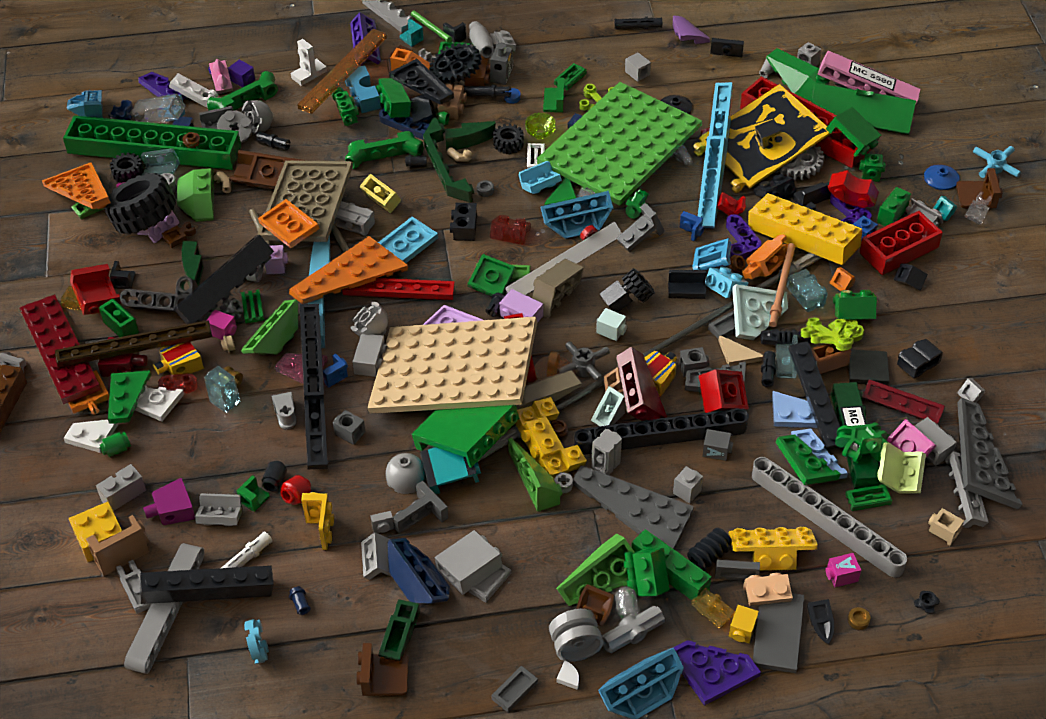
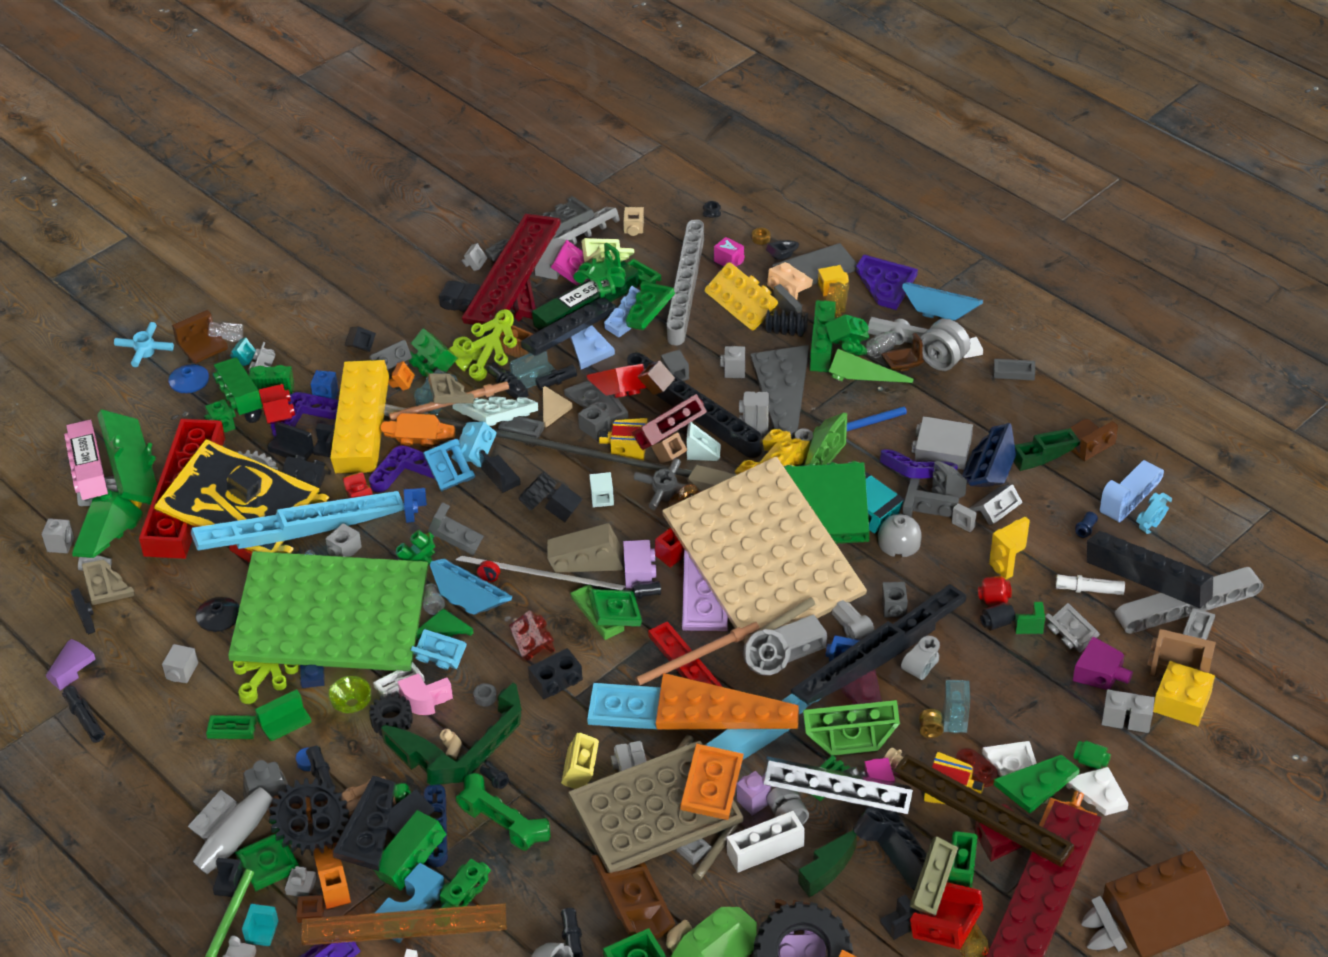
camera: 125 degrees left, 5 degrees down
(117, 287) = (933, 876): none -> olive plate
(234, 238) = (765, 841): none -> white brick
(298, 652) = (1122, 498): none -> light blue beam
(349, 391) = (854, 624): none -> light grey piece
(386, 347) = (789, 615): none -> dark tan bar
(399, 316) = (736, 635): none -> nougat bar
(422, 528) = (948, 481): none -> dark grey slope
(454, 519) = (907, 466): none -> dark purple beam
(510, 155) = (422, 696): none -> bright pink brick
(546, 539) = (876, 418): none -> blue bar
(683, 177) = (343, 542): none -> light grey brick
(699, 405) = (656, 377): none -> panel
(745, 62) = (104, 583): none -> dark tan wing
(787, 278) = (447, 390): none -> dark tan wing
(856, 129) = (193, 423): green panel -> none
(865, 275) = (393, 354): none -> dark grey bracket
(888, 178) = (237, 386): none -> green brick
(900, 242) = (315, 350): red brick -> none
(921, 393) = (512, 268): none -> dark red plate

